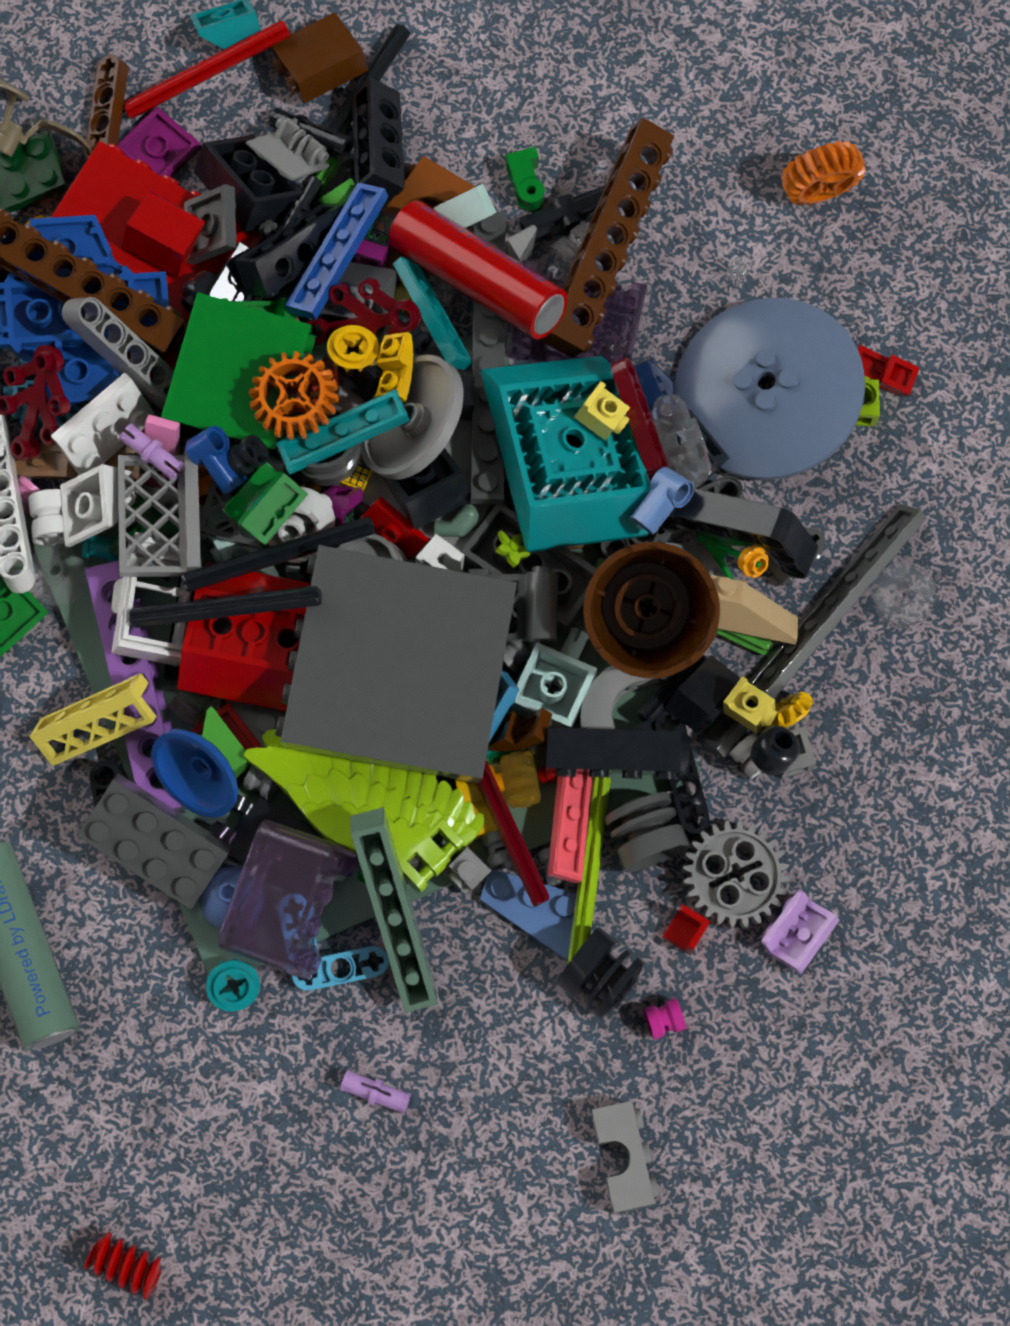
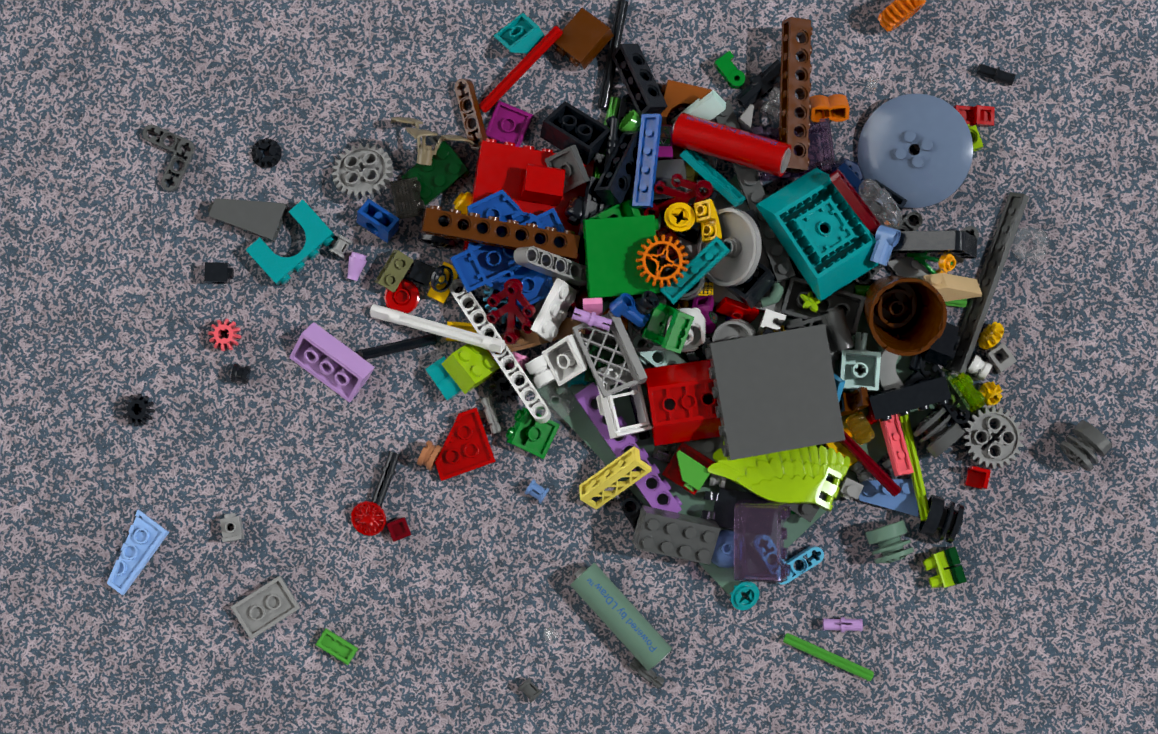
camera: 15 degrees left, 10 degrees up
(26, 1060) = (649, 675): none -> dark grey axle
(195, 773) = (687, 492): blue dish -> none
(225, 607) = (670, 395): black axle -> none
(277, 554) = (686, 353): black axle -> none
(291, 150) = (591, 107): light grey hinge -> none
(327, 137) = (588, 85): black pin -> none
(333, 1138) = (828, 657): none -> bright green axle
(393, 909) = (822, 527): sand green brick -> none
(501, 977) = (889, 542): none -> sand green wheel
(579, 1044) = (949, 576): none -> lime hips
(603, 412) = (832, 211): light yellow brick -> none
(620, 1126) = (998, 625): light grey arch -> none
(664, 282) = (832, 107): none -> orange brick
(665, 1018) = (983, 529): dark pink wheel -> none
(723, 794) = (971, 395): none -> clear neon green plate
(751, 718) = (964, 345): light yellow brick -> none
(755, 802) = (991, 393): none -> yellow gear
(775, 750) = (994, 363): black head -> none
(798, 932) = (1038, 457): lavender bracket -> none
(887, 935) = (1085, 446): none -> dark grey wheel
(939, 321) = (995, 74): none -> black axle

